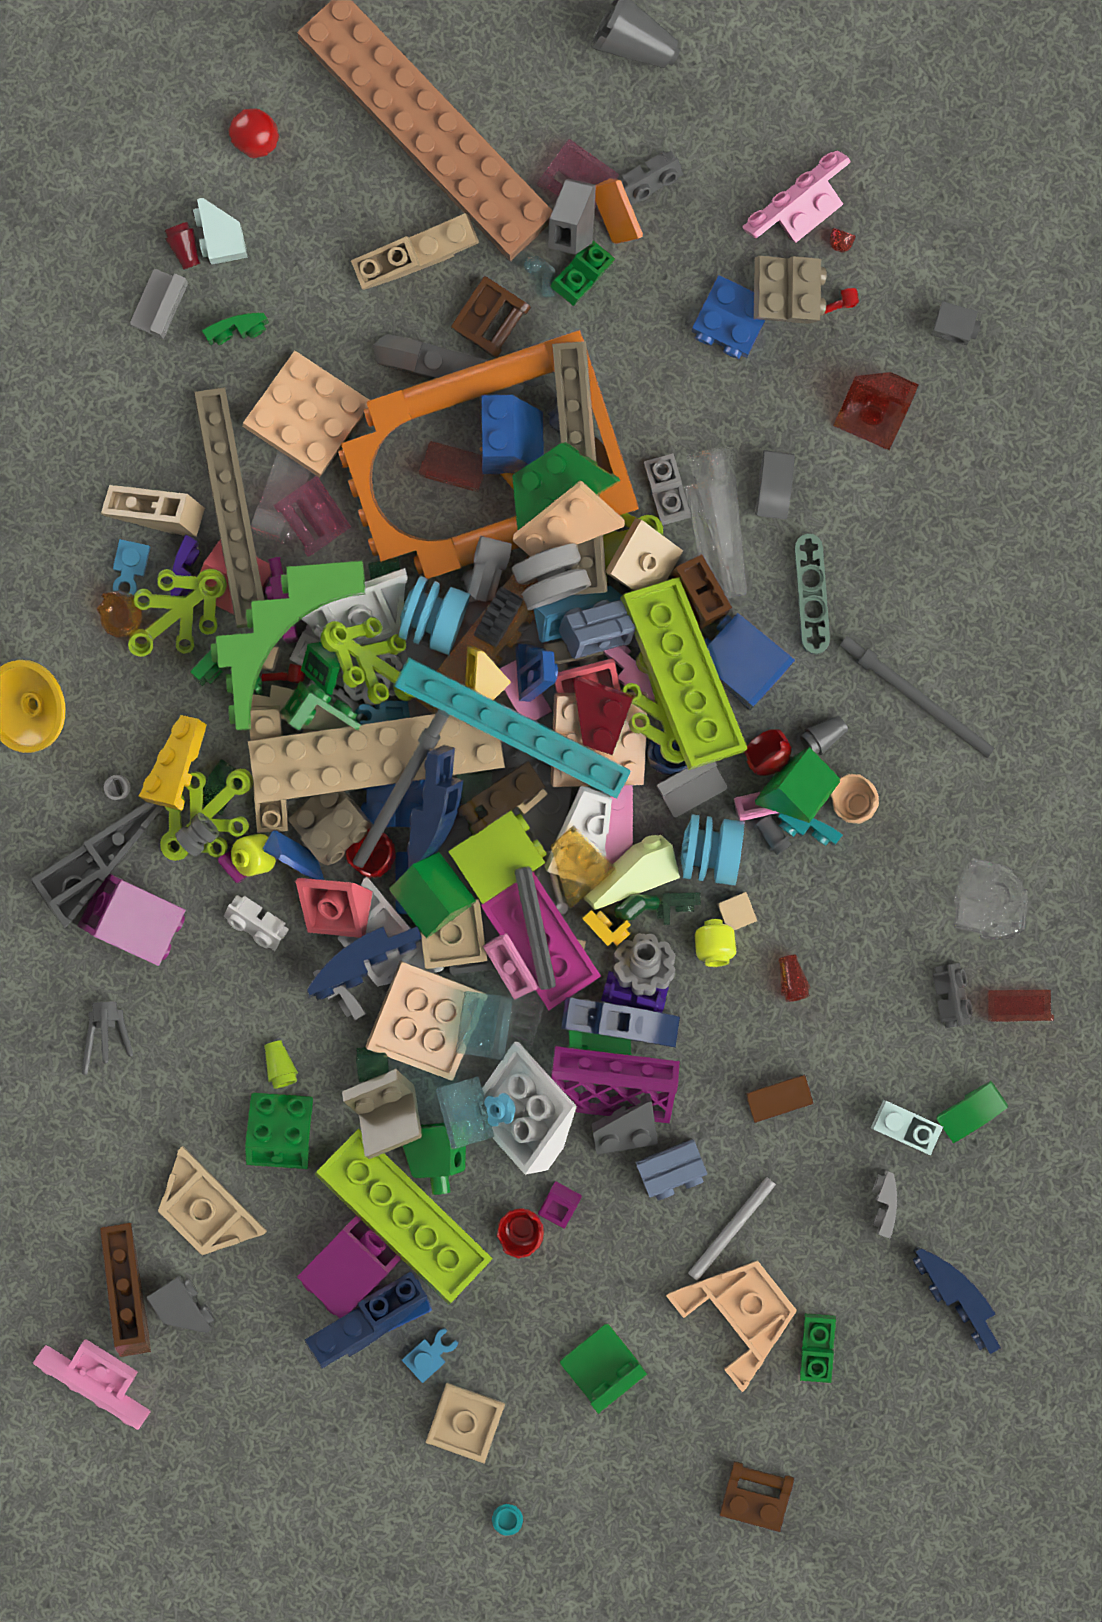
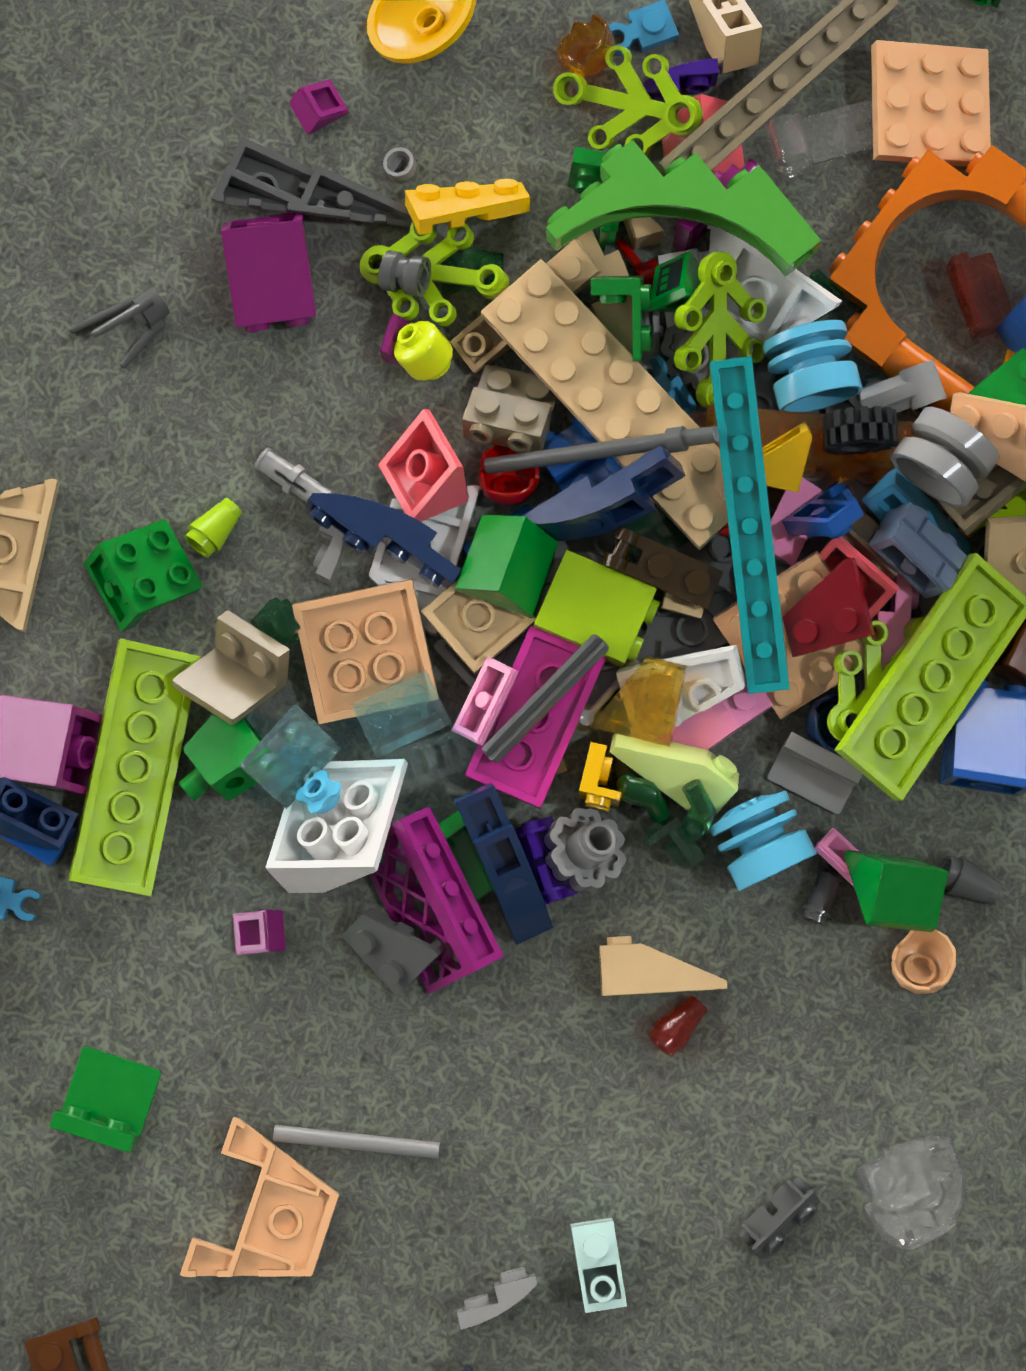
camera: 55 degrees right, 5 degrees down
(39, 813) = (318, 105): none -> magenta slope
(243, 916) = (351, 385): white hinge -> none
(280, 993) = (290, 477): none -> light grey pin
(293, 855) = (450, 390): blue slope -> none
(319, 511) = (837, 182): clear pink plate -> none
(520, 1232) = (199, 908): red hair -> none
(671, 878) = (700, 813): none -> clear green arm
(671, 1169) = (377, 1029): sand blue brick -> none
(715, 943) = (660, 912): neon yellow head -> none
(737, 911) = (710, 914): tan slope -> none
(743, 979) = (643, 970): none -> tan slope
(768, 752) = (908, 832): red hair -> none
(779, 1098) = (536, 1098): reddish brown slope -> none
(817, 1348) = (285, 1328): green slope -> none
(822, 832) = (862, 950): teal slope -> none
(972, 1112) = (664, 1328): green slope -> none
(1019, 1005) = (818, 1302): clear red panel -> none

